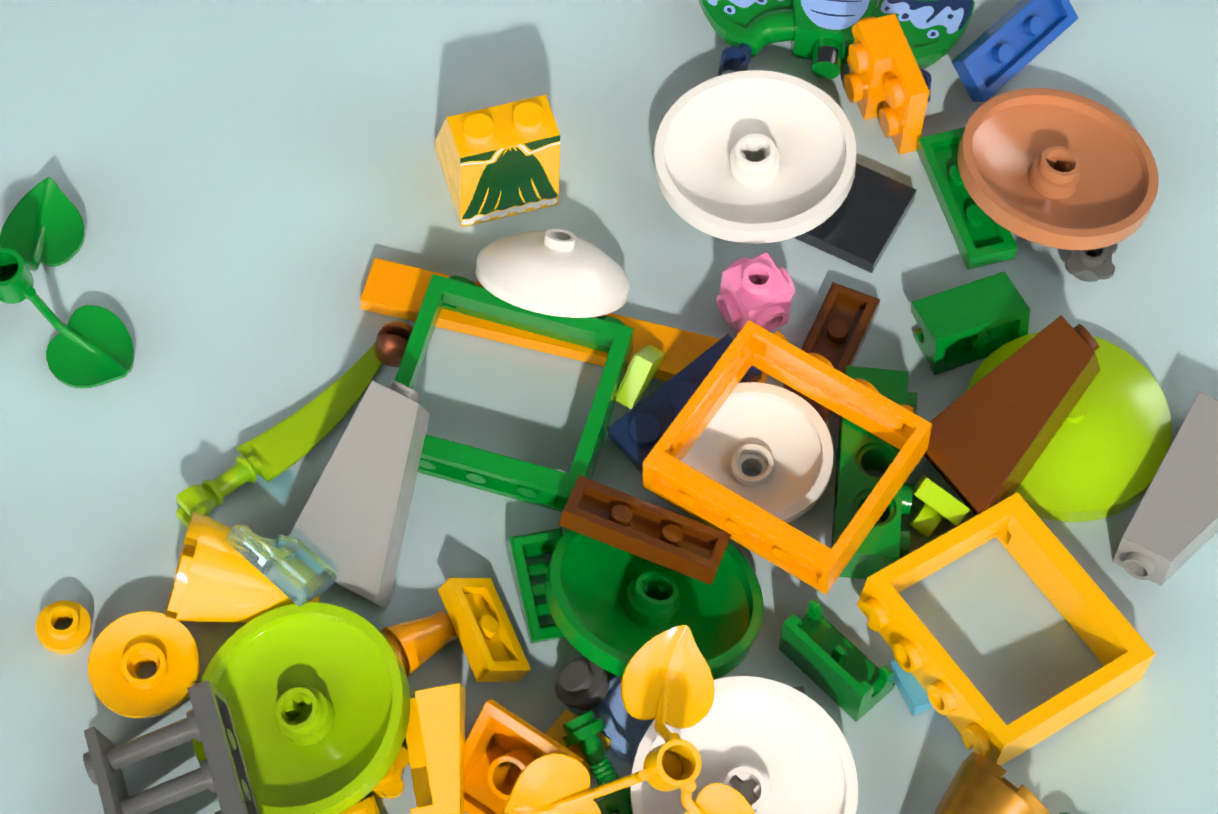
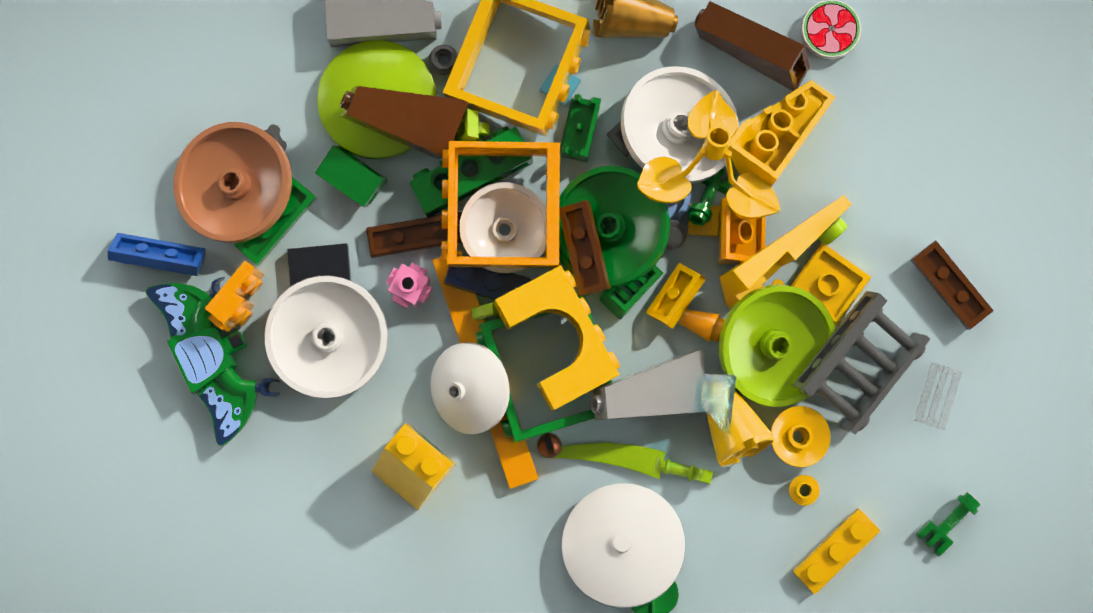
camera: 120 degrees left, 25 degrees up
(183, 343) = (623, 545): none -> white dish
(598, 443) = (556, 294): none -> yellow arch
(1080, 533) = (439, 51): none -> dark grey plate

